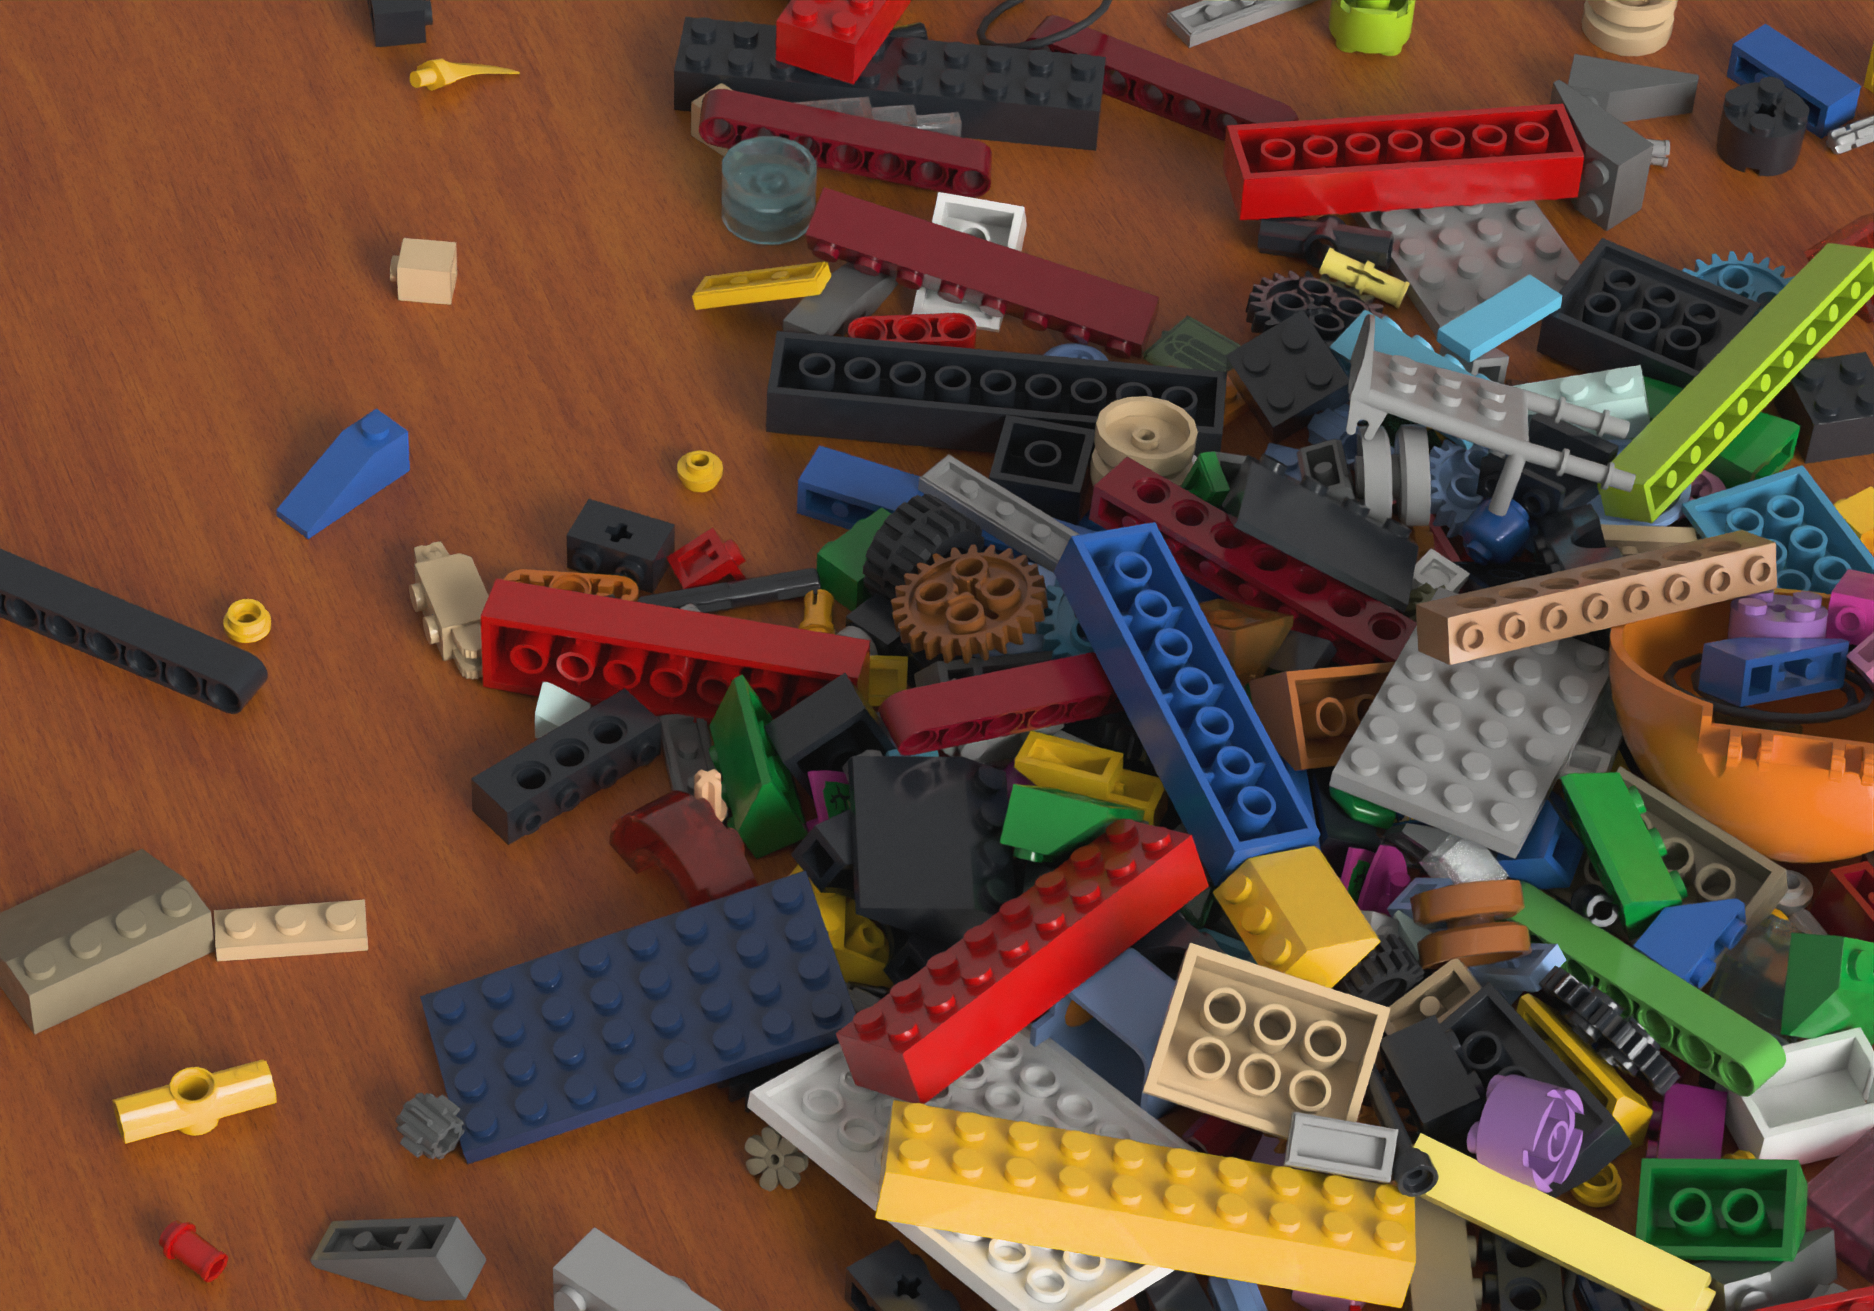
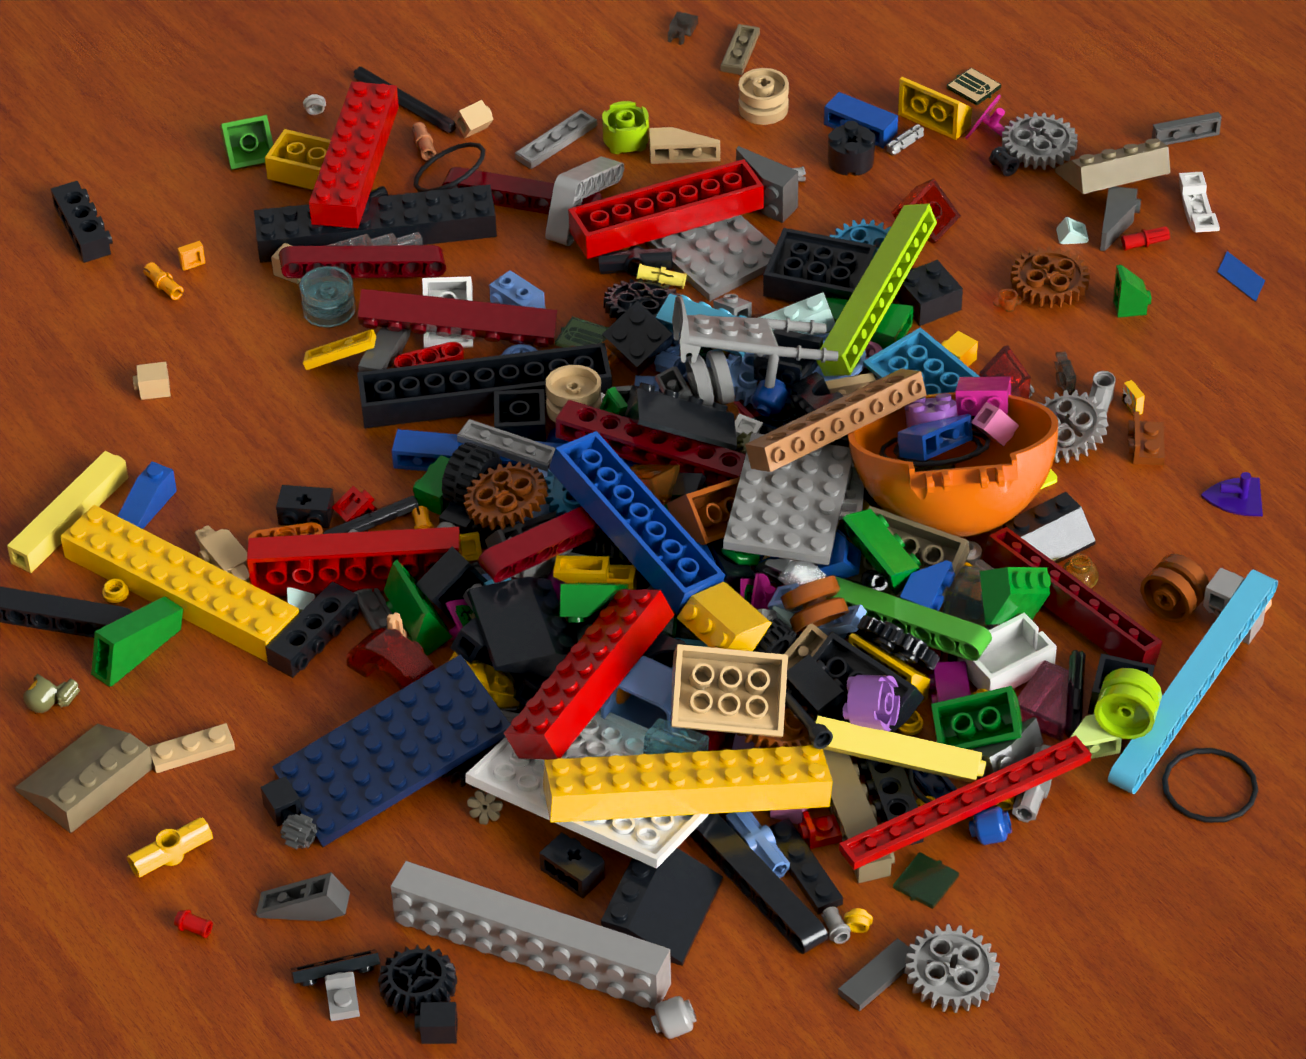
camera: 10 degrees left, 0 degrees up
(64, 777) = (44, 694): none -> olive piece
(209, 465) = (88, 489): none -> light yellow brick
(249, 711) = (133, 638): none -> green slope
(358, 627) = (160, 569): none -> yellow brick
(416, 1060) = (280, 800): none -> black brick
(440, 73) = (126, 269): yellow bar -> none
(498, 105) = (163, 281): none -> light orange pin
(558, 72) = (191, 255): none -> light orange tile
(699, 470) = (335, 457): yellow plate -> none
(1099, 250) = (514, 290): none -> medium blue brick
(1127, 1113) = (667, 739): none -> clear light blue brick
(1251, 88) = (572, 188): none -> light grey beam
(1340, 1147) = (779, 731): light grey tile -> none
(1461, 61) = (681, 146): none -> tan slope
(1499, 318) = (741, 282): medium azure tile -> none
(1633, 90) = (776, 143): dark grey slope -> none

